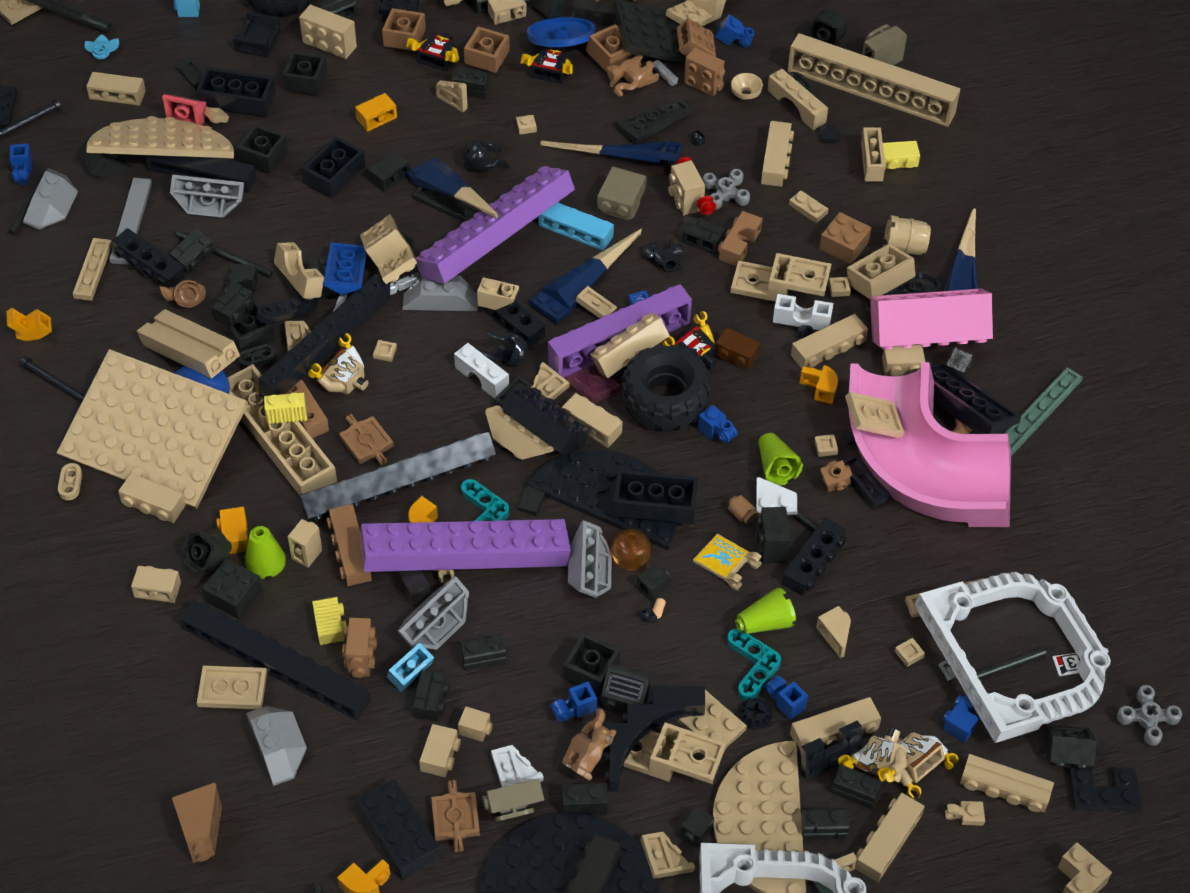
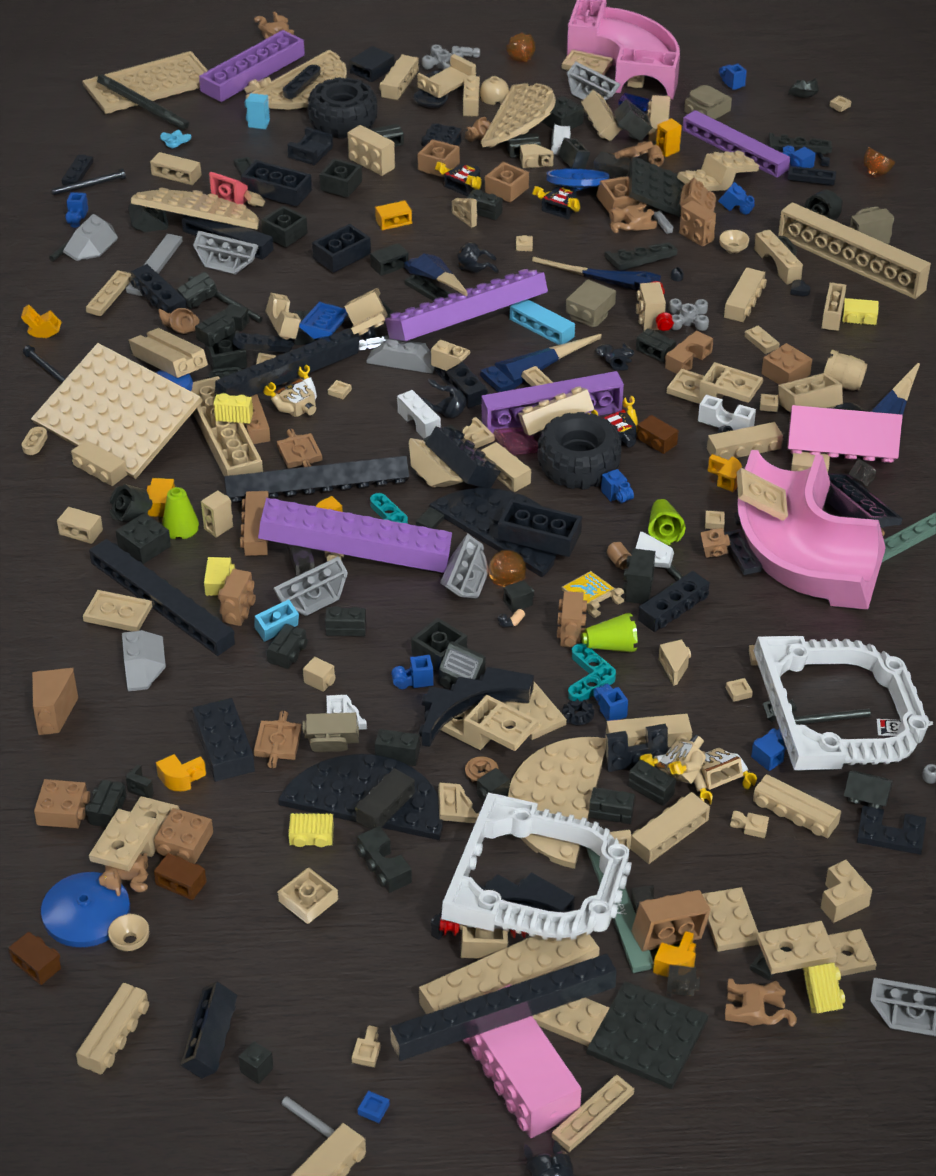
camera: 15 degrees right, 10 degrees down
(439, 750) = (280, 688): tan brick -> none
(587, 751) = (412, 703): medium nougat animal -> none
(673, 799) = (479, 763): none -> medium nougat gear
(719, 603) = (571, 618): none -> medium nougat brick

